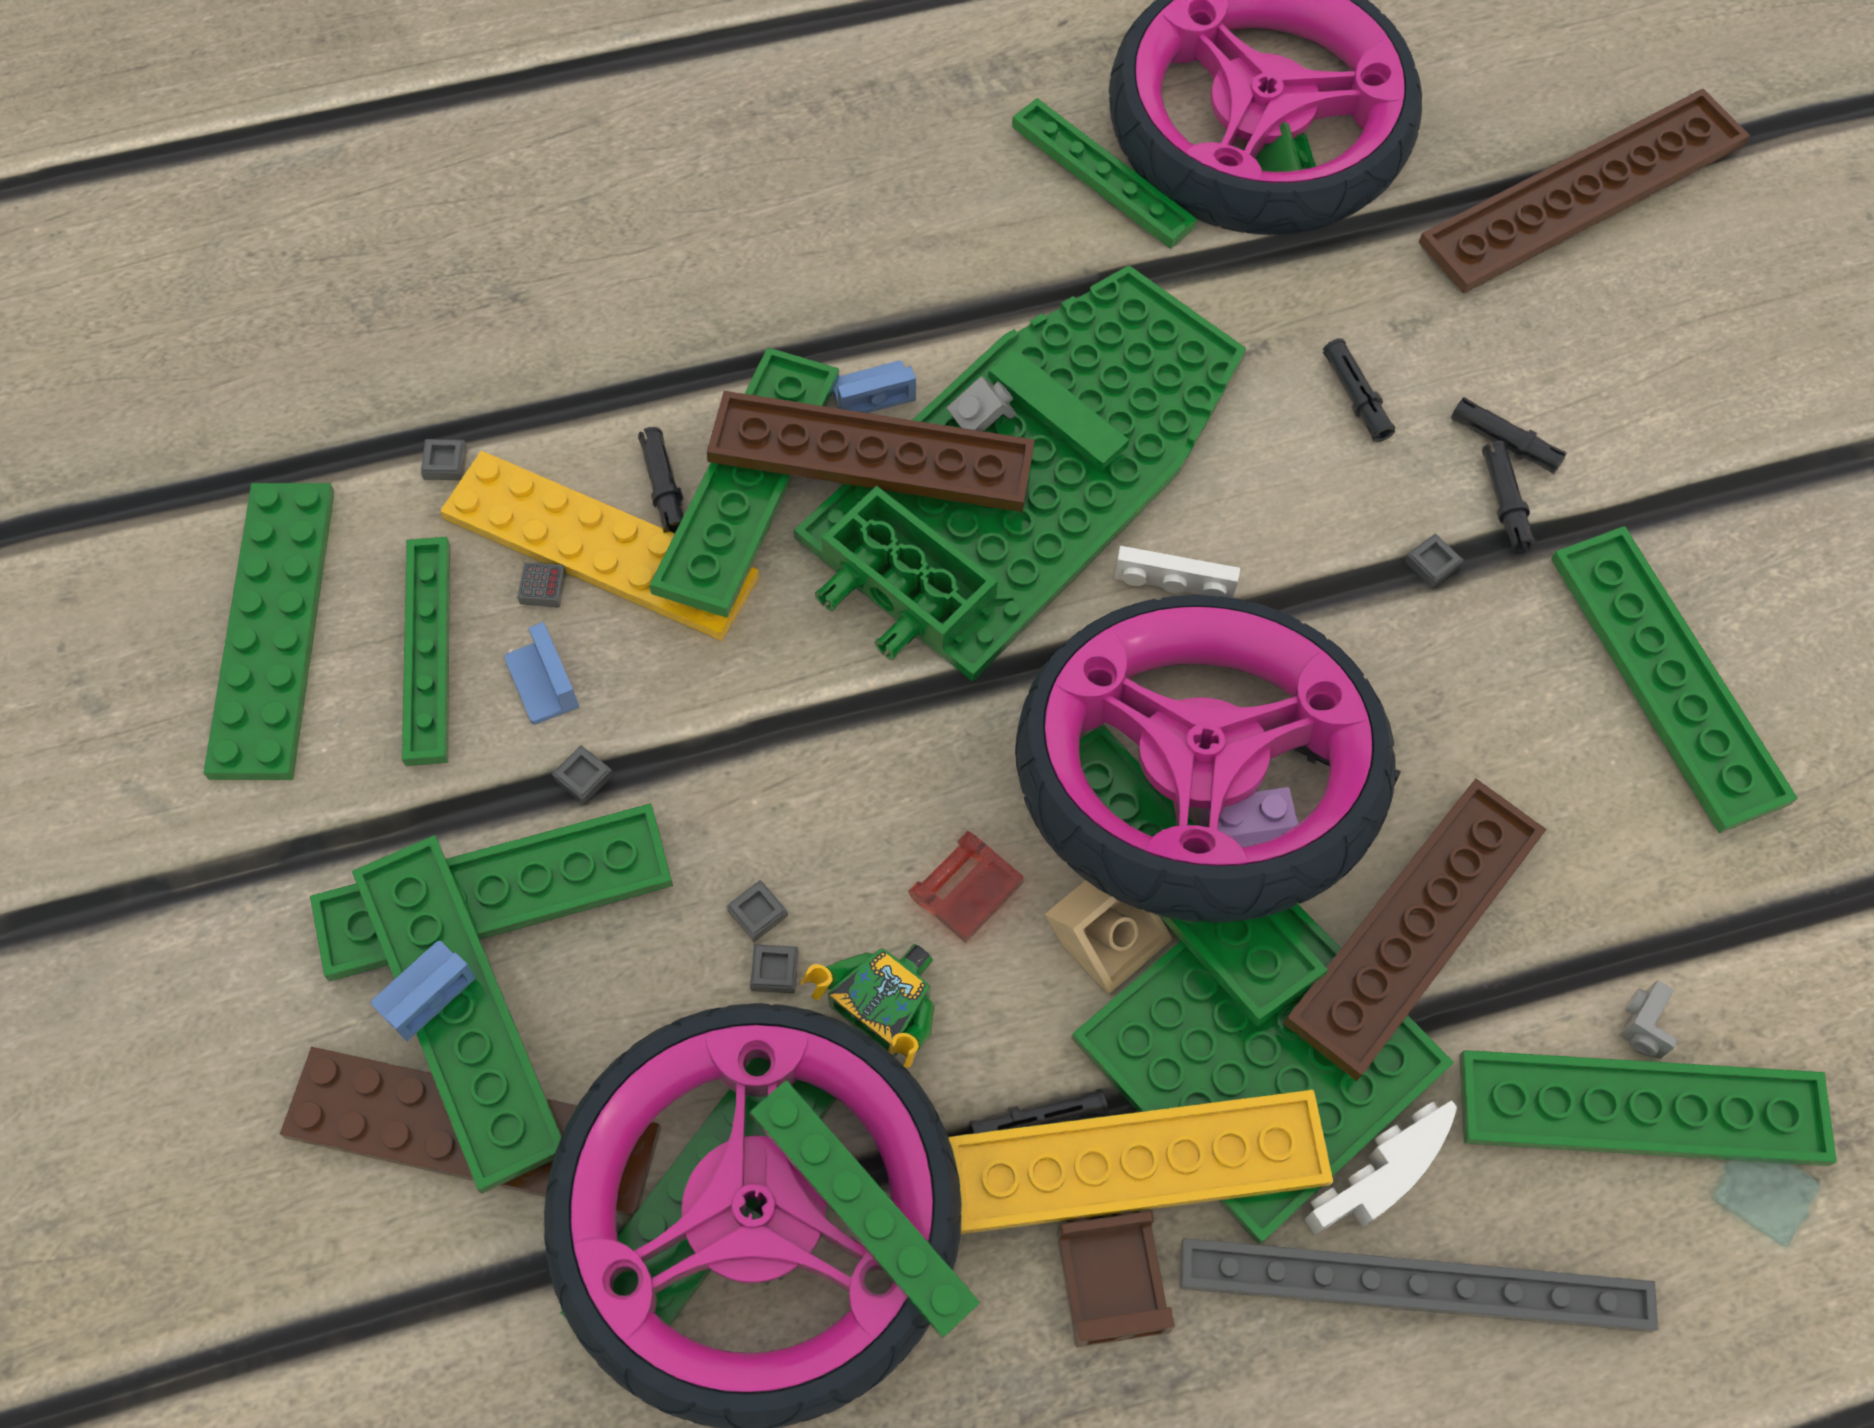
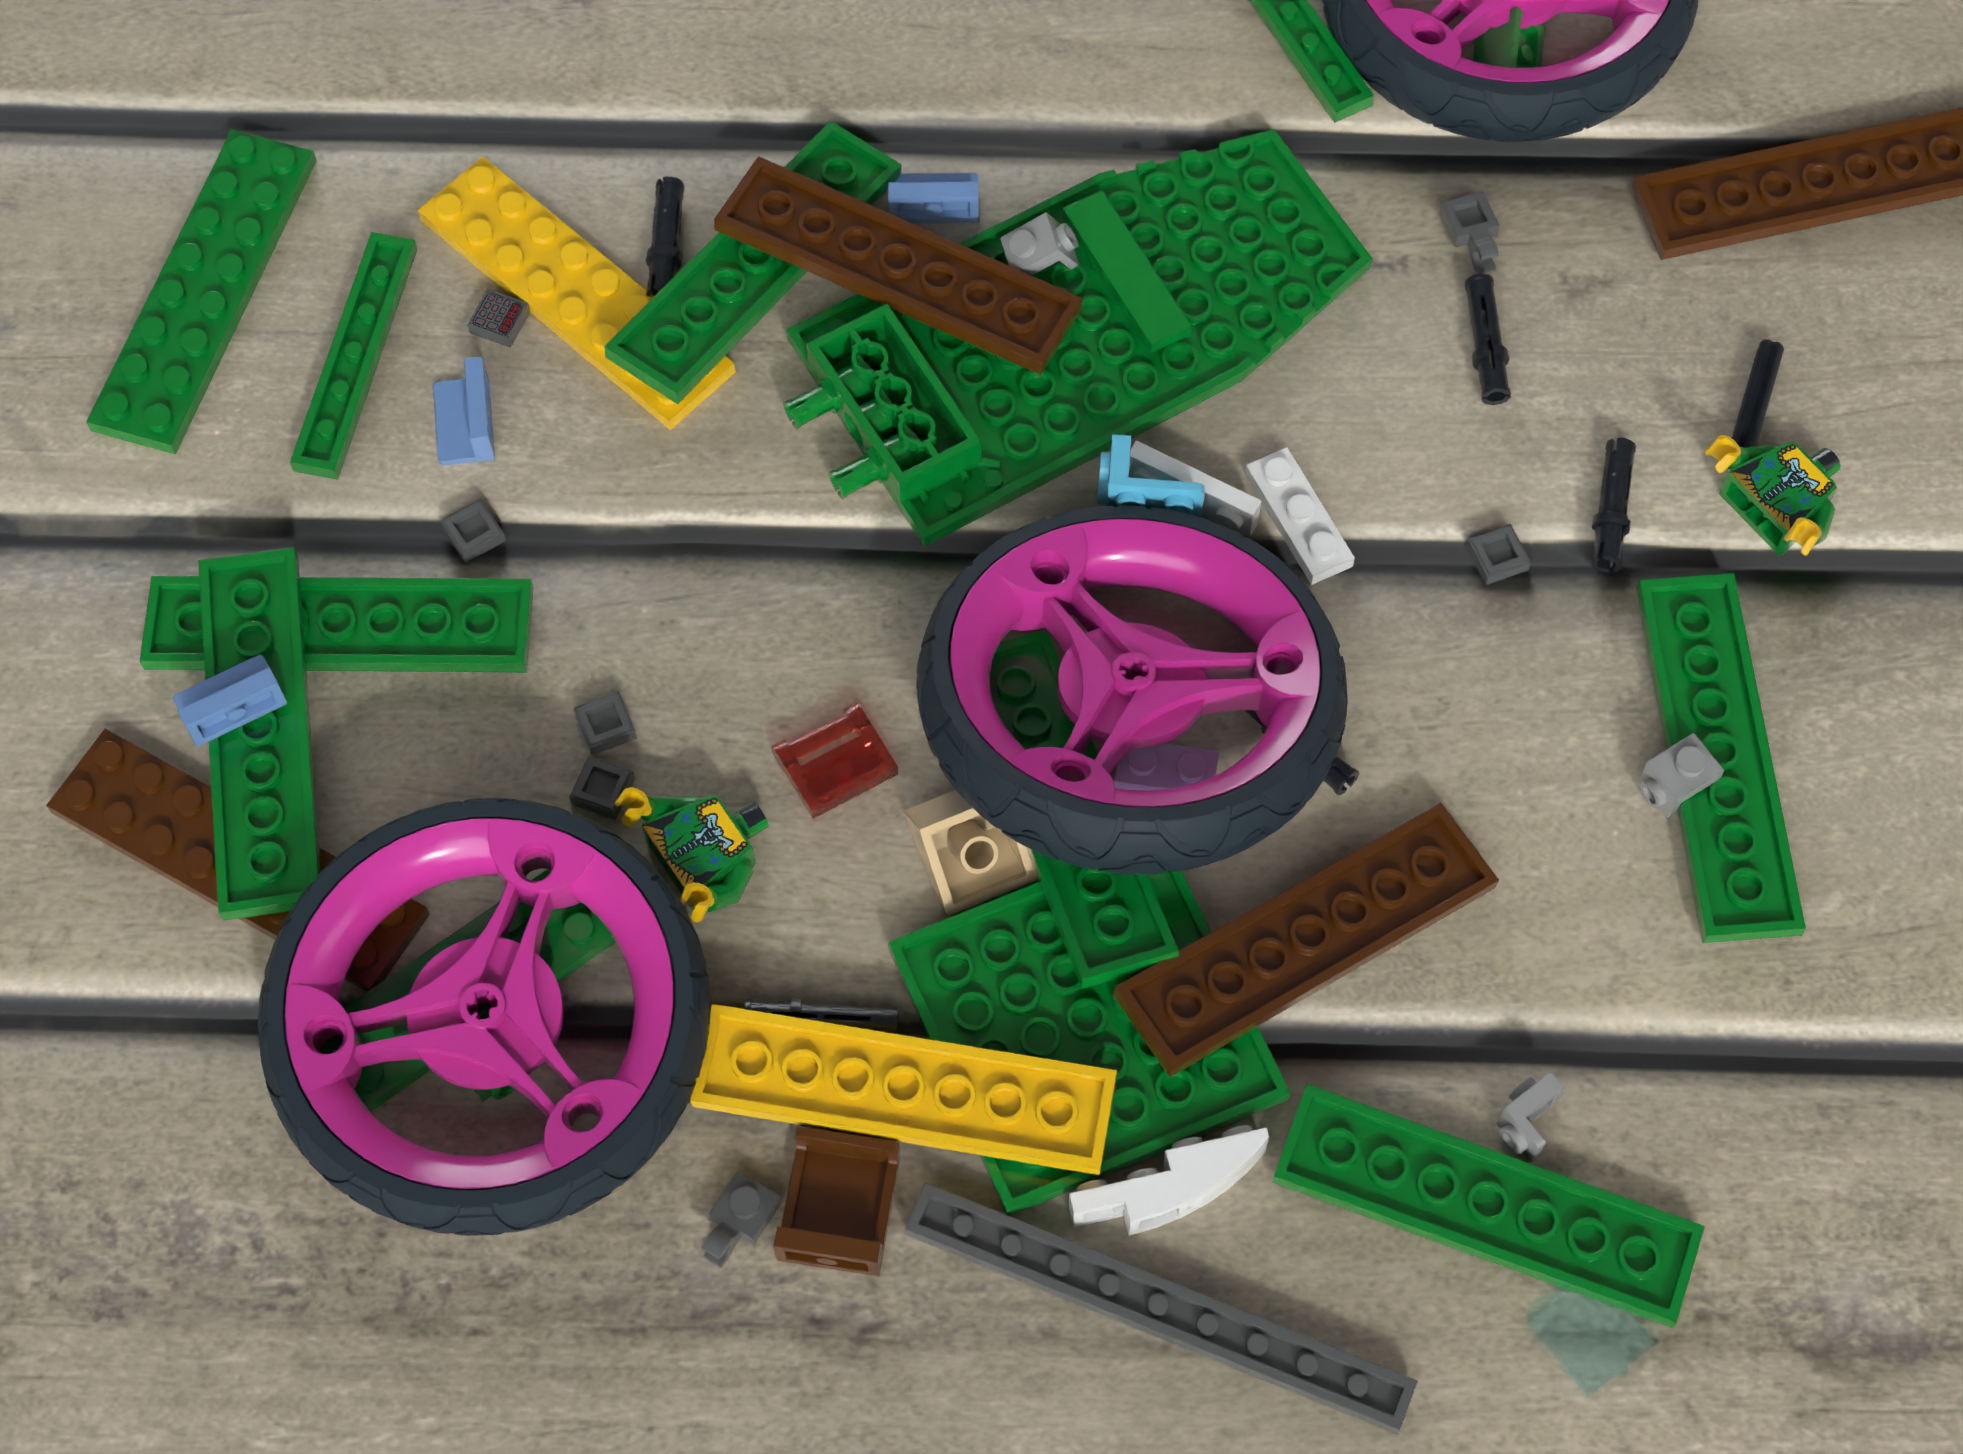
camera: 20 degrees right, 0 degrees up
(443, 459) = (441, 156): dark grey tile -> none
(865, 1209) = (589, 1039): green plate -> none
(1033, 1315) = (740, 1213): none -> dark grey plate
(1122, 588) = (1118, 488): none -> medium azure bracket
(1266, 571) = (1299, 516): none -> white plate
(1311, 300) = (1472, 224): none -> dark grey plate
(1521, 442) = (1657, 450): black pin -> none
(1580, 385) = (1758, 393): none -> black axle
(1633, 452) = (1779, 490): none -> torso
(1650, 701) = (1678, 775): none -> light grey bracket

